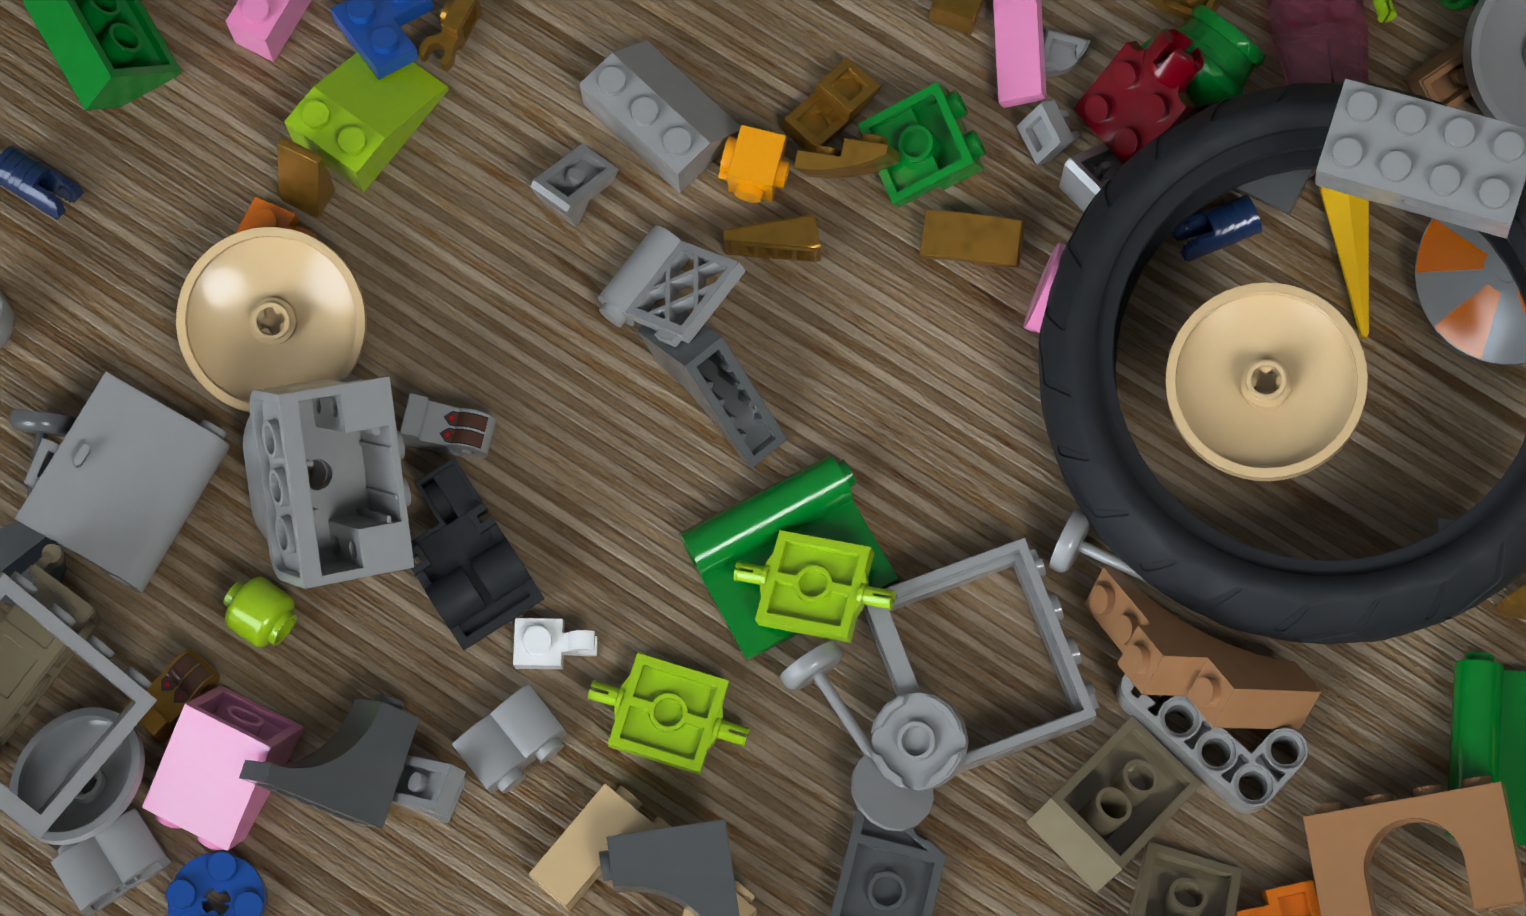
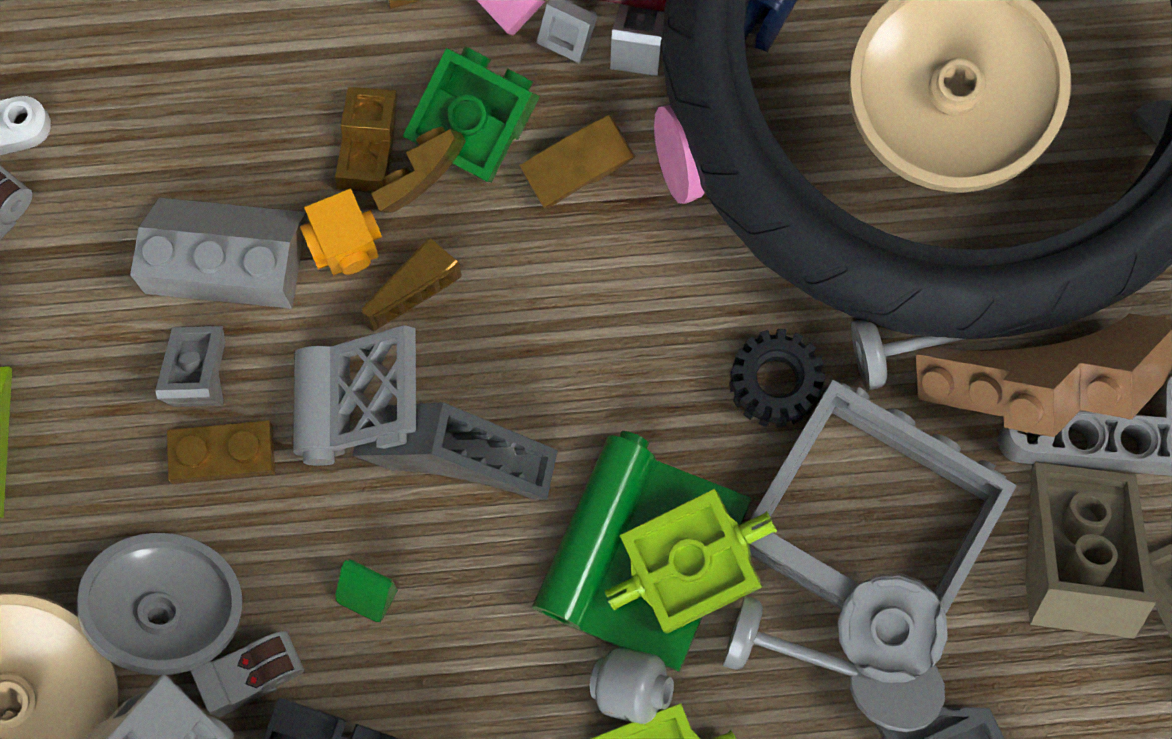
camera: 40 degrees left, 0 degrees up
(435, 316) = (163, 580): none -> light grey dish
(548, 259) = (220, 452): none -> pearl gold plate
(572, 433) = (364, 591): none -> green slope
(704, 640) = (631, 685): none -> light grey head
(995, 481) = (789, 351): none -> black tyre

